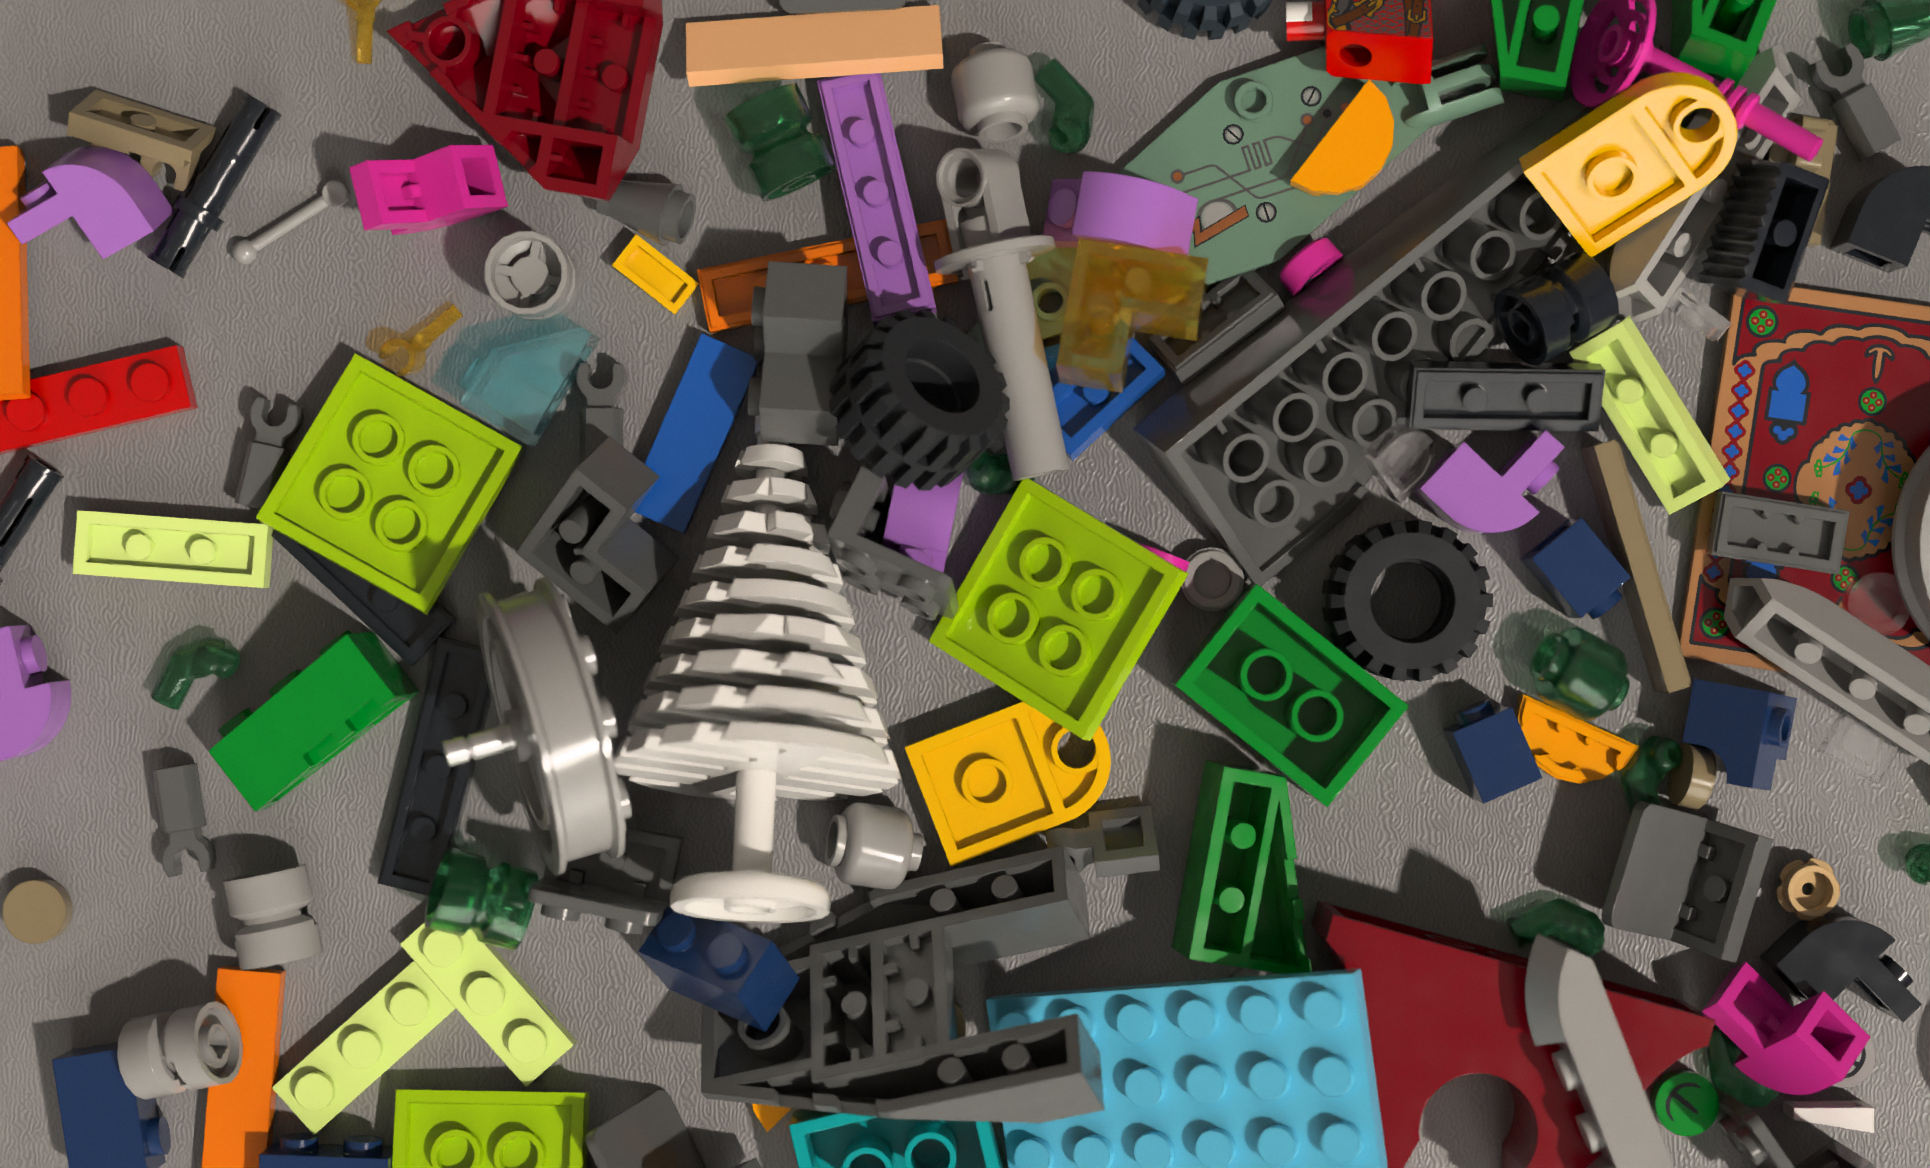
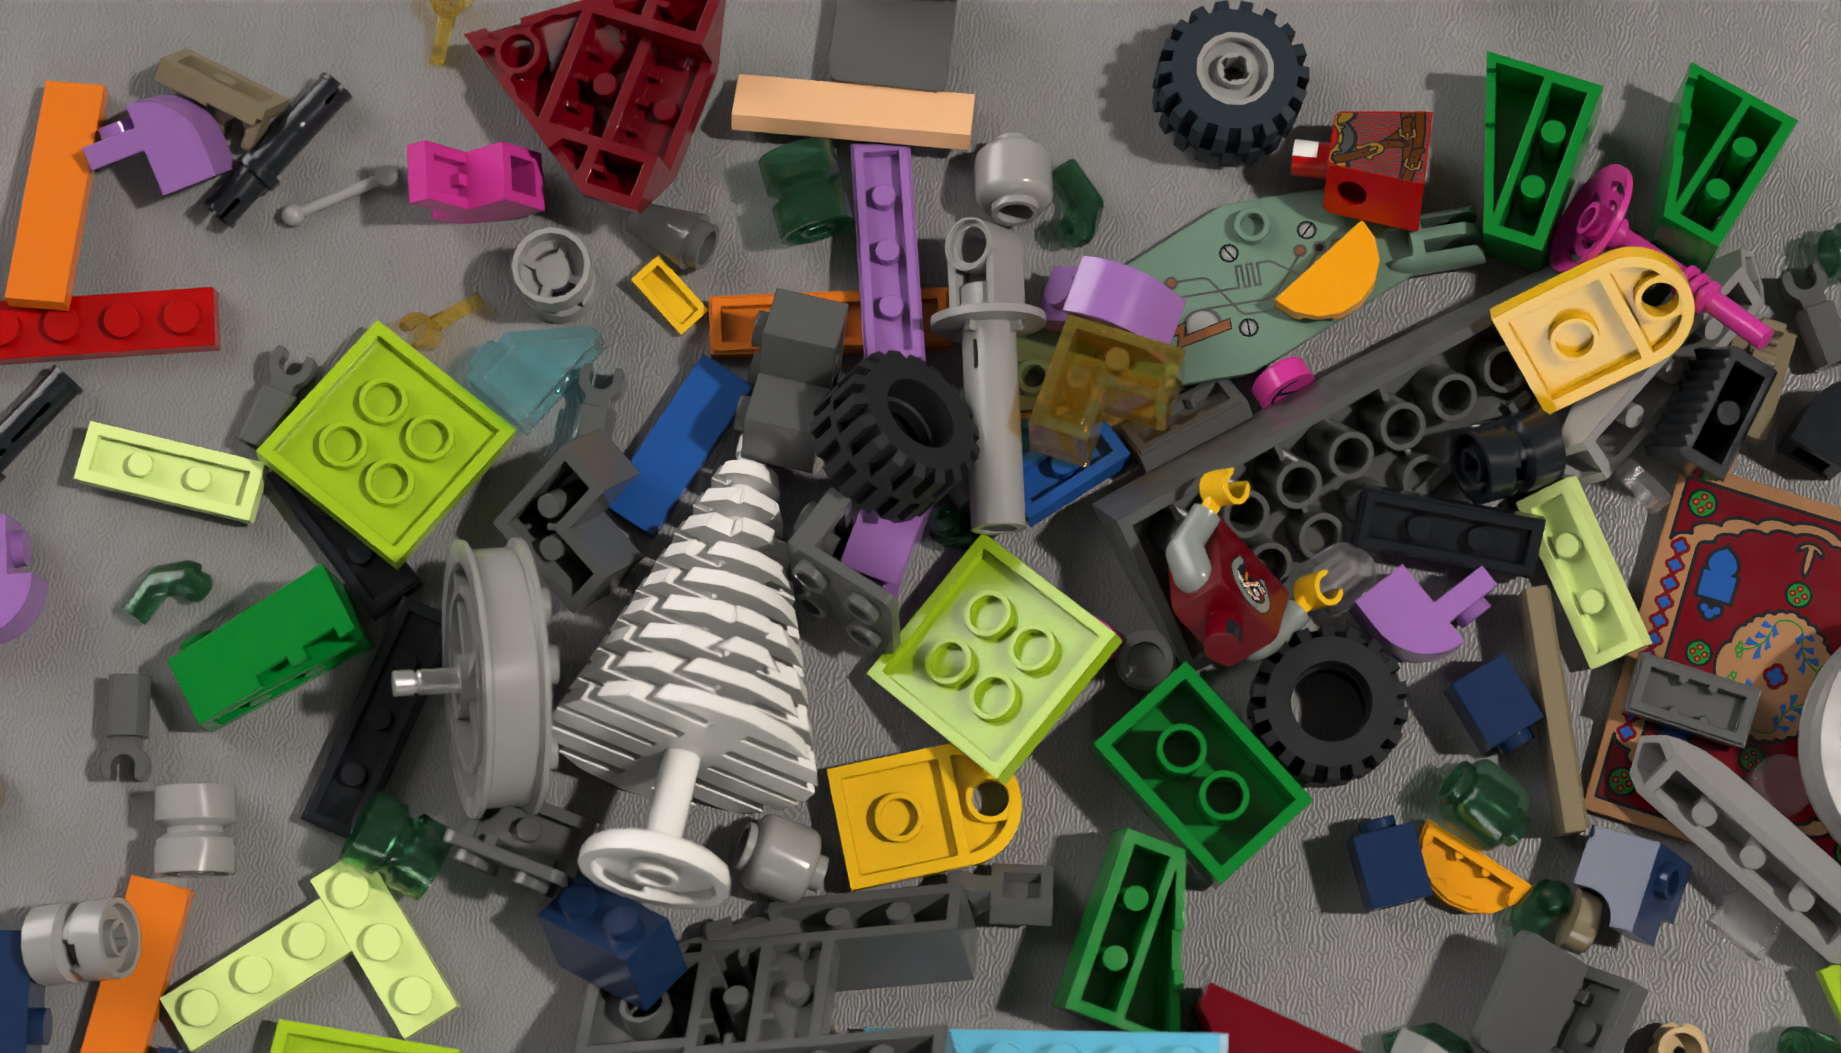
camera: 10 degrees right, 10 degrees down
(1288, 505) = (1224, 587): none -> torso

